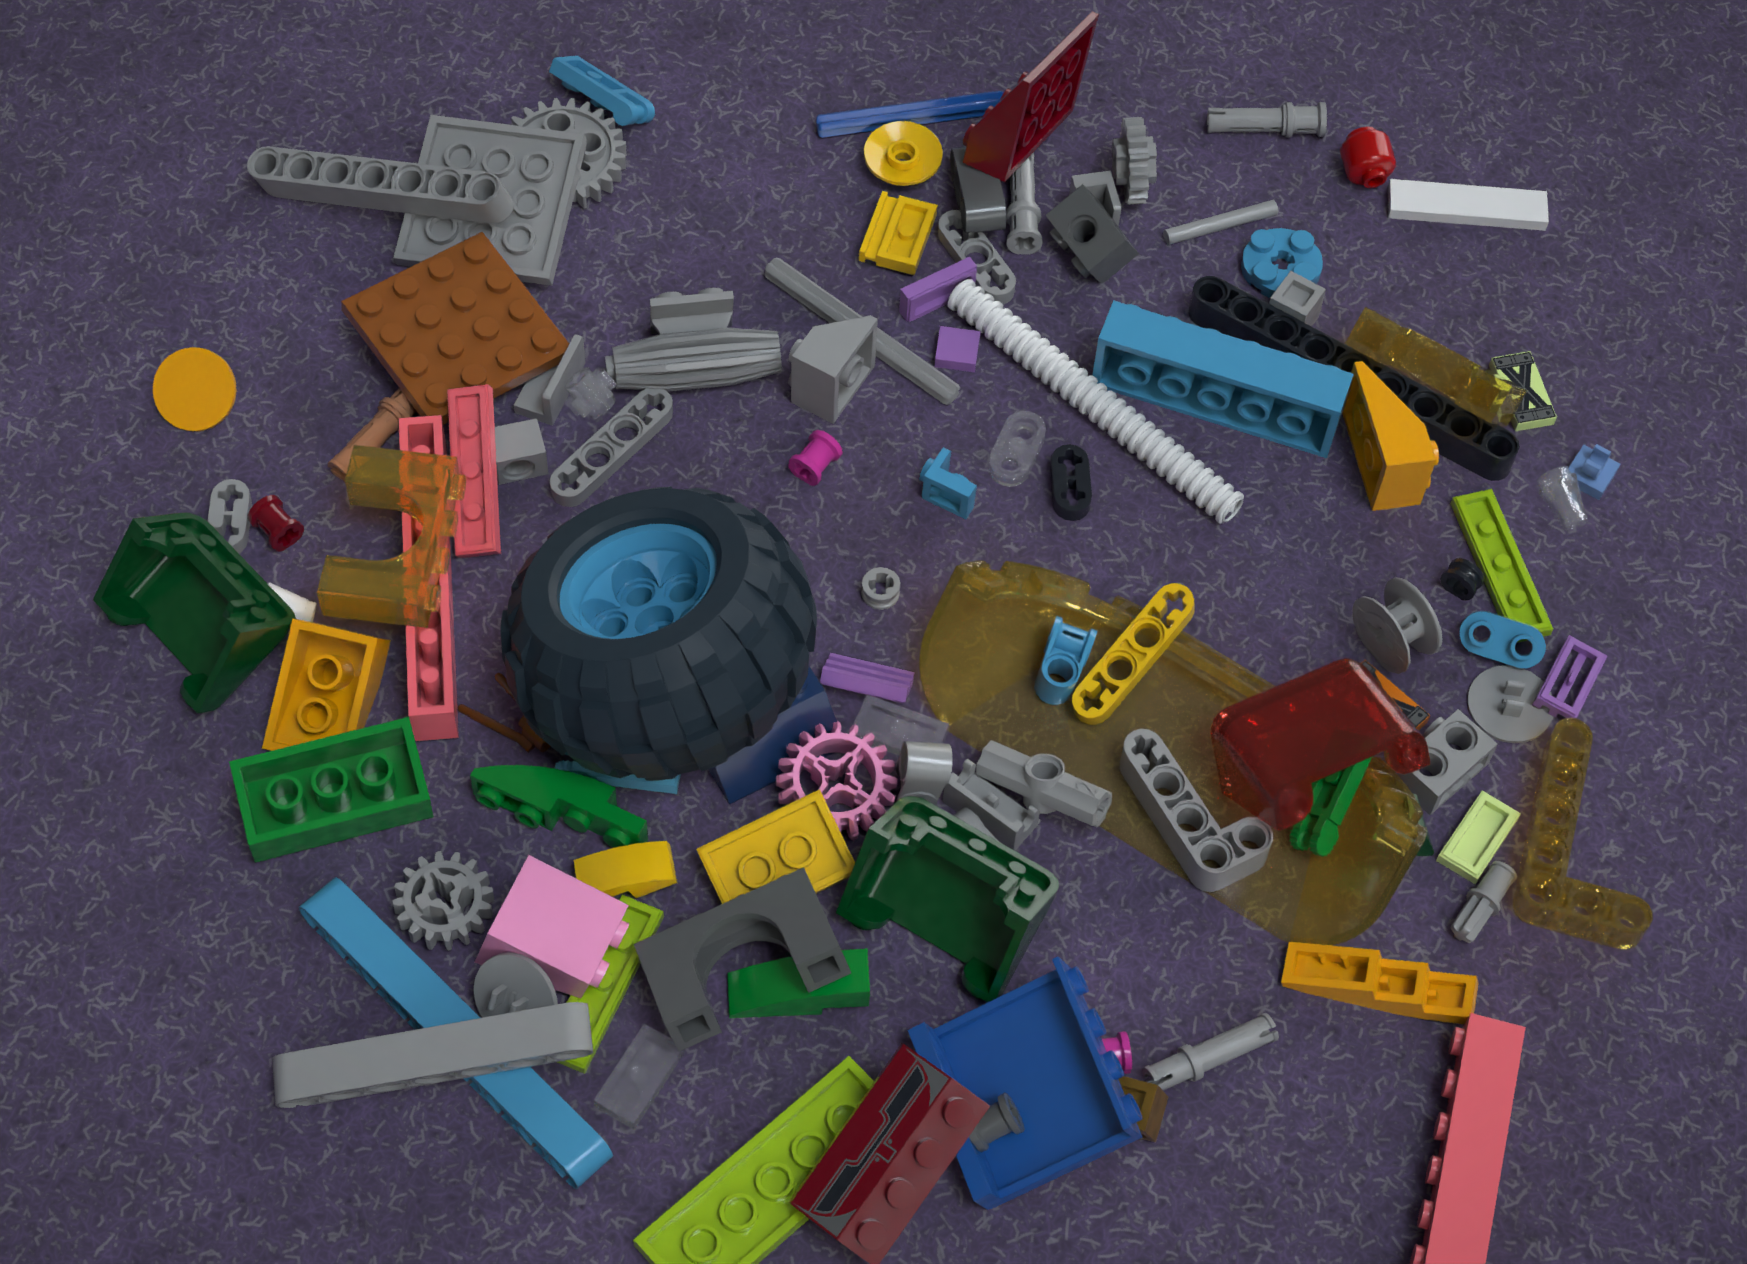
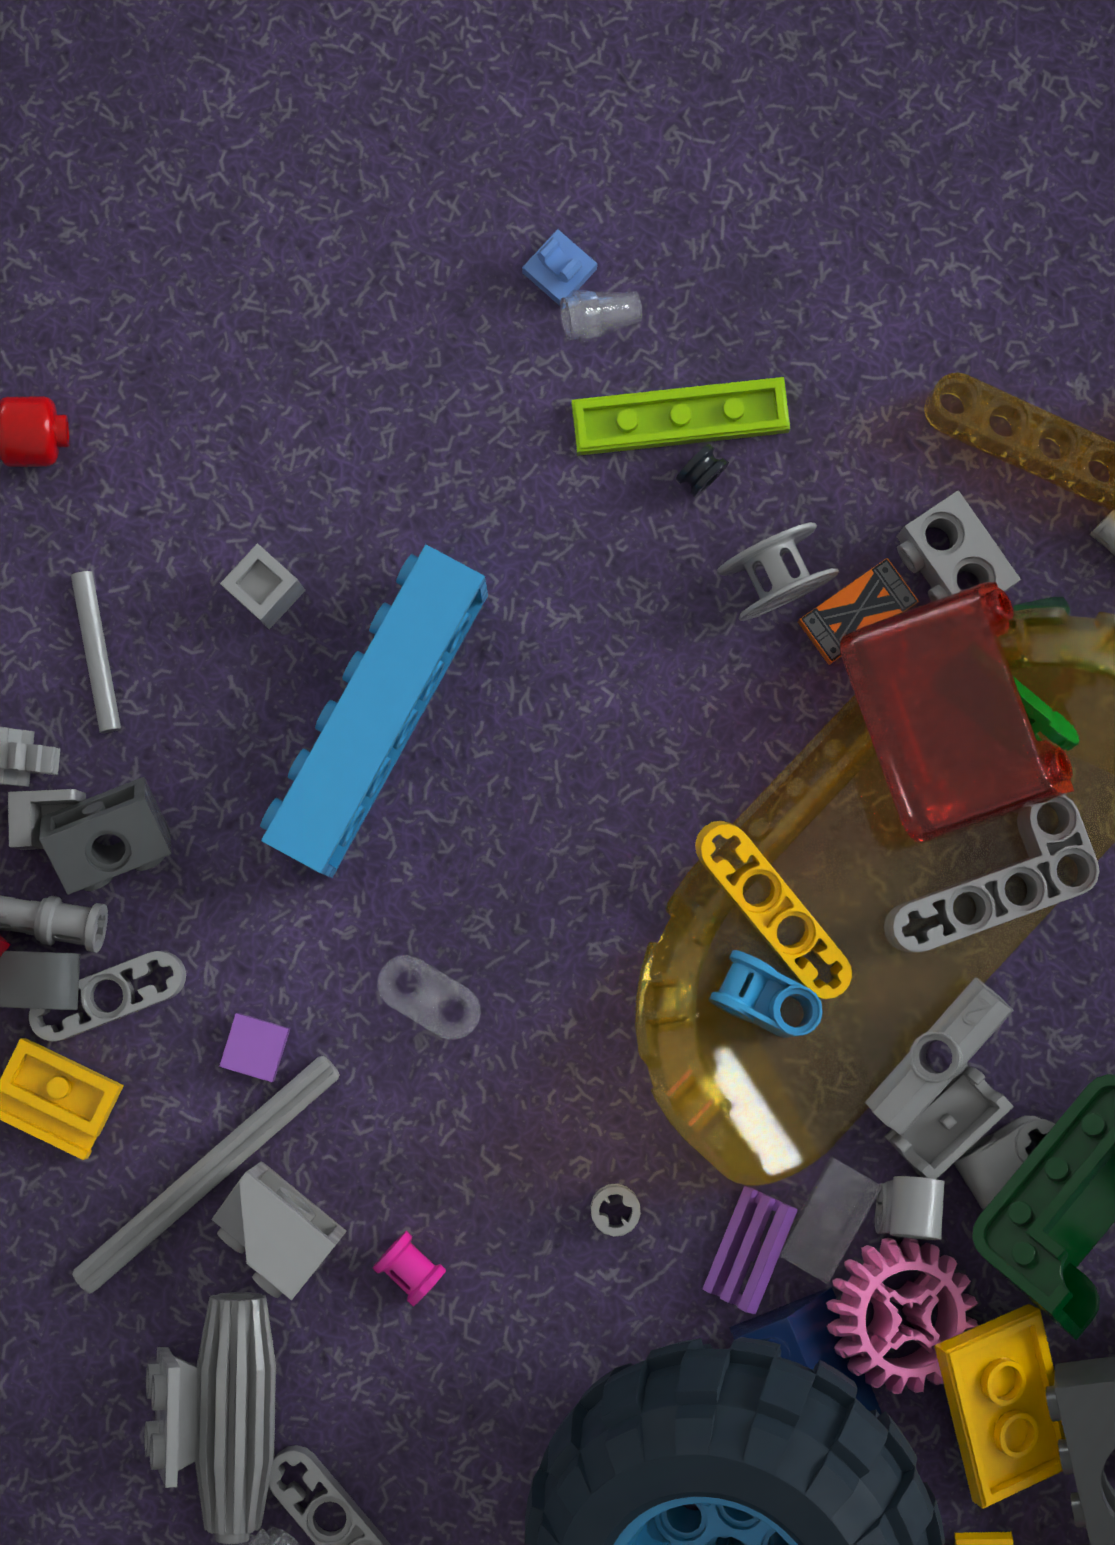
camera: 80 degrees left, 25 degrees up
(934, 289) = (162, 1060): medium lavender tile -> none
(946, 489) = (486, 1094): dark azure bracket -> none
(1079, 482) = (485, 948): black beam -> none
(1095, 400) = (364, 885): white piece -> none
(1276, 244) = (152, 603): dark azure plate -> none
(1387, 443) = (513, 518): light orange slope -> none
(1436, 365) = (437, 374): clear yellow arch -> none
(1457, 432) = (391, 513): black beam -> none
(1467, 204) = (116, 316): white tile -> none
(1478, 837) = (1050, 539): yellowish green tile -> none
(1502, 639) = (796, 441): dark azure plate -> none
(1503, 707) = (873, 454): light grey piece -> none
(1535, 407) = (424, 321): tile -> none
(1557, 704) = (844, 391): medium lavender tile -> none

